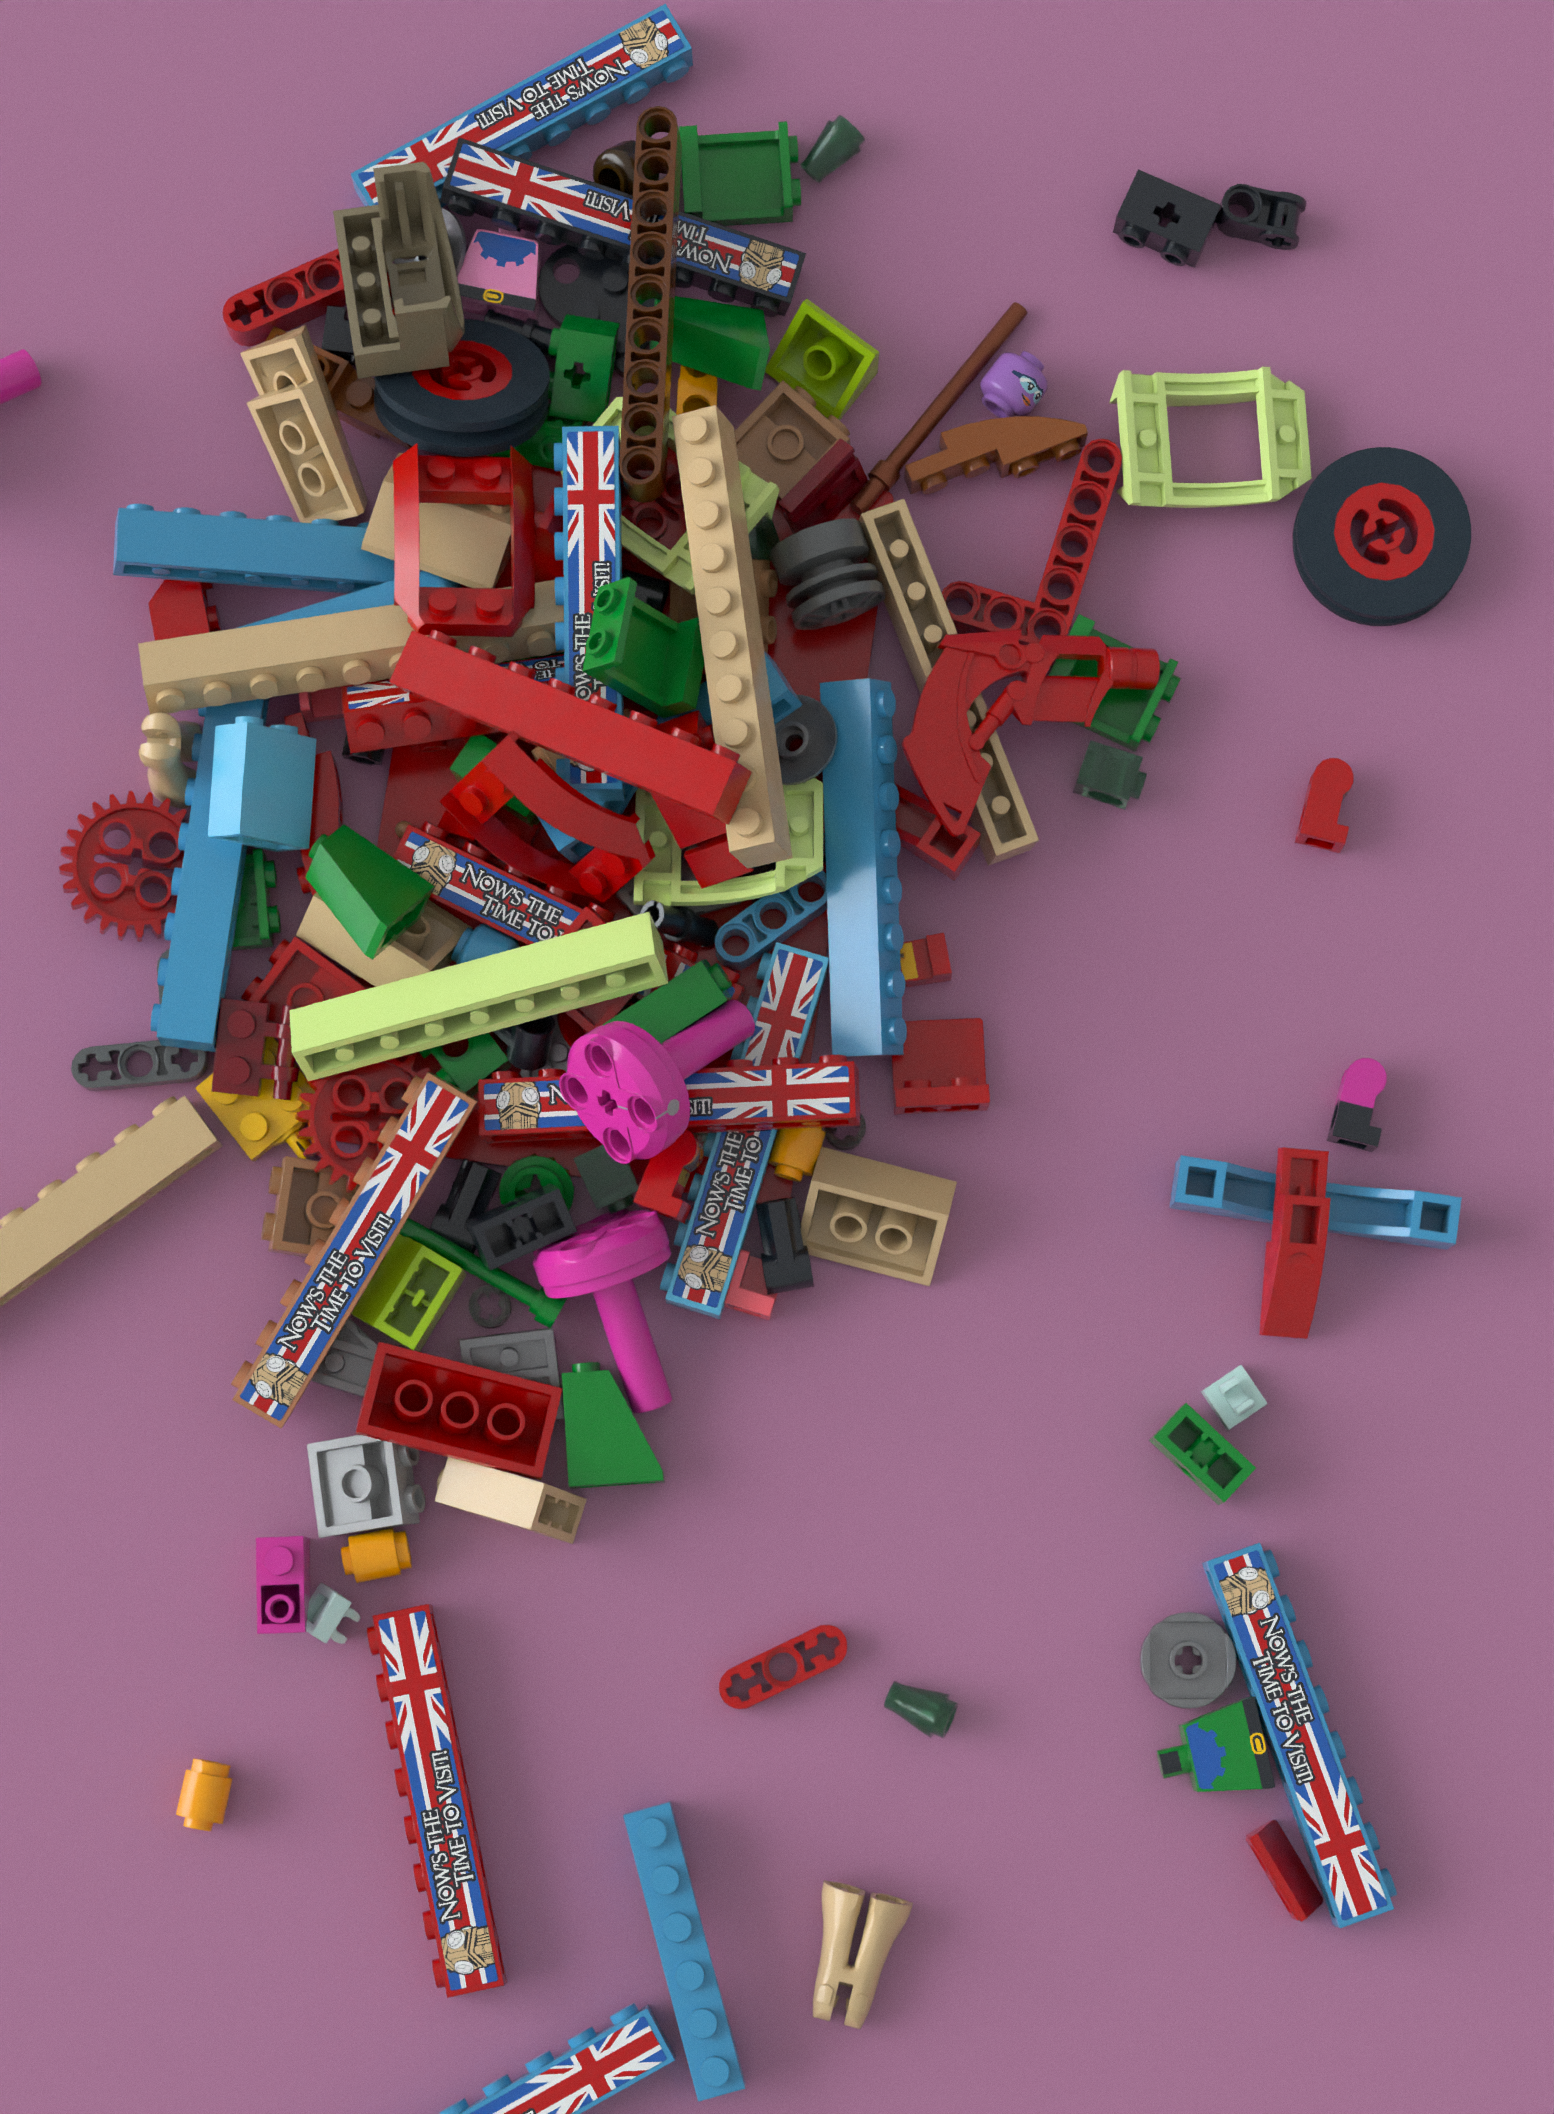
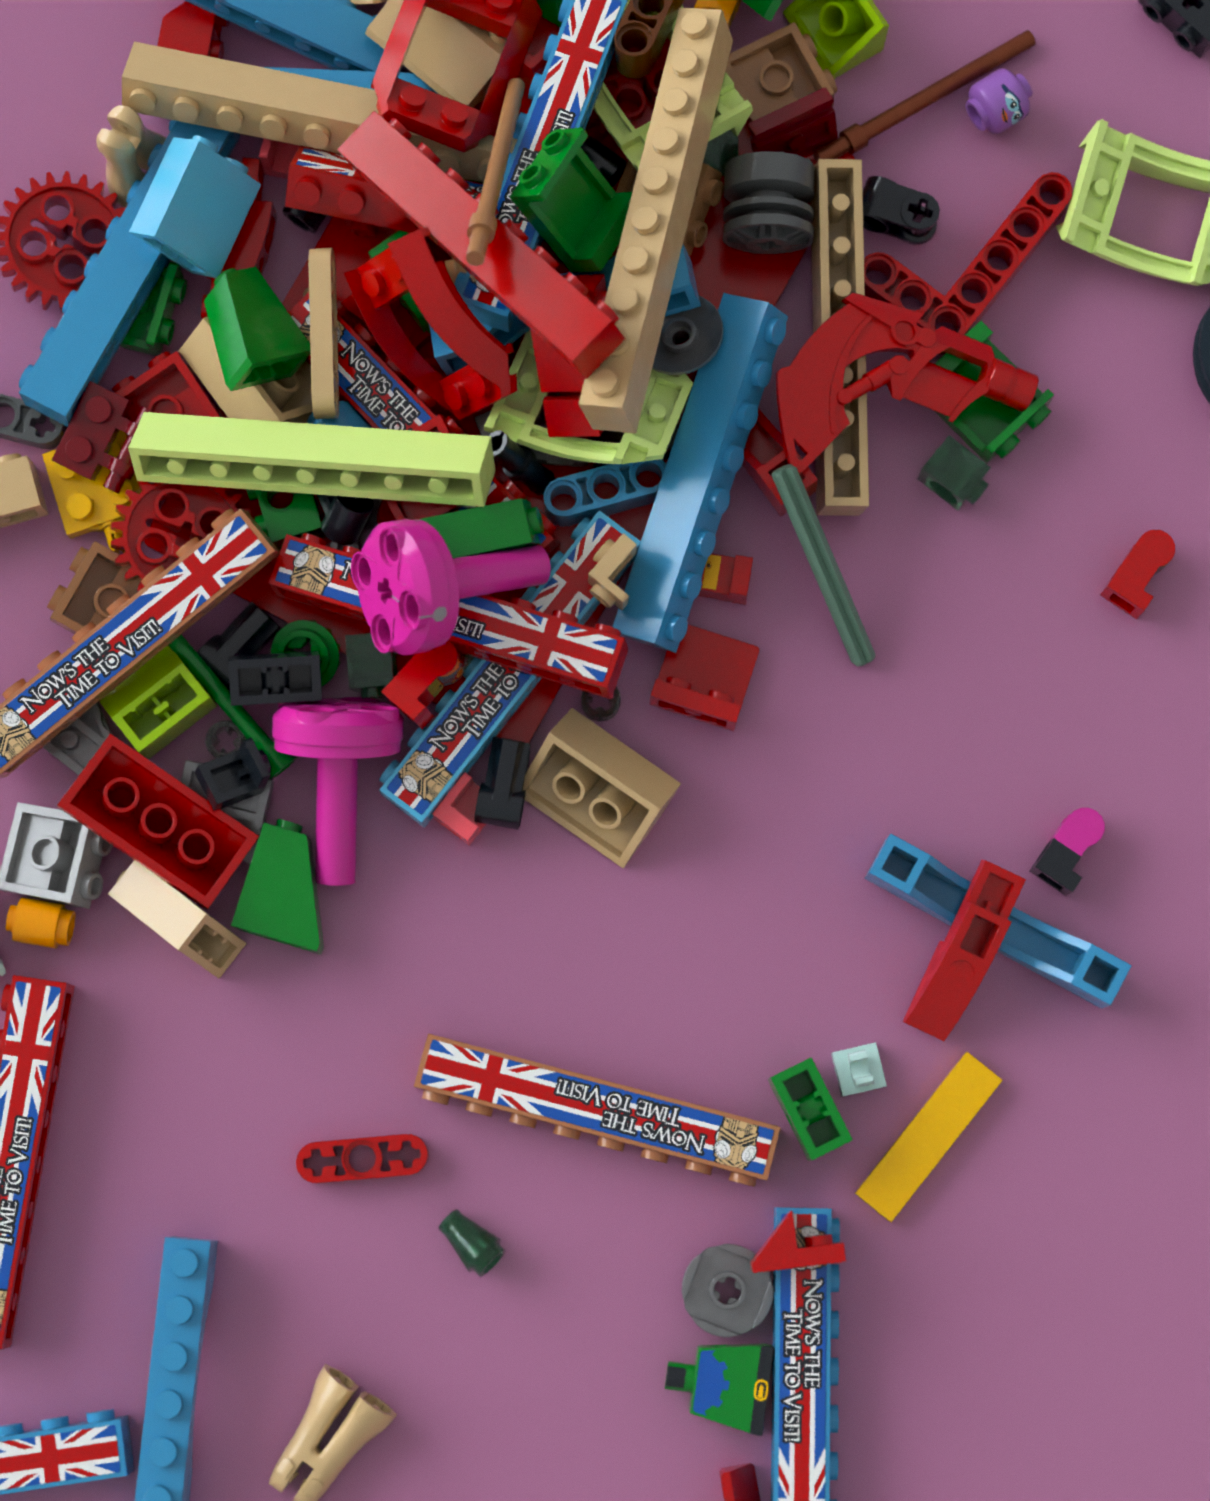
camera: 20 degrees right, 0 degrees up
(439, 867) = (323, 333): none -> tan beam
(516, 1337) = (234, 775): none -> black bracket
(571, 710) = (483, 222): none -> medium nougat bar
(796, 1152) = (547, 703): light orange brick -> none
(808, 989) = (610, 561): none -> tan bracket
(949, 531) = (893, 207): none -> black piece
(995, 1530) = (597, 1108): none -> brick
(1013, 443) = (976, 149): dark orange slope -> none
(1016, 915) = (823, 564): none -> sand green axle
(1229, 1601) = (781, 1249): none -> red slope
(1326, 1437) = (928, 1136): none -> yellow tile

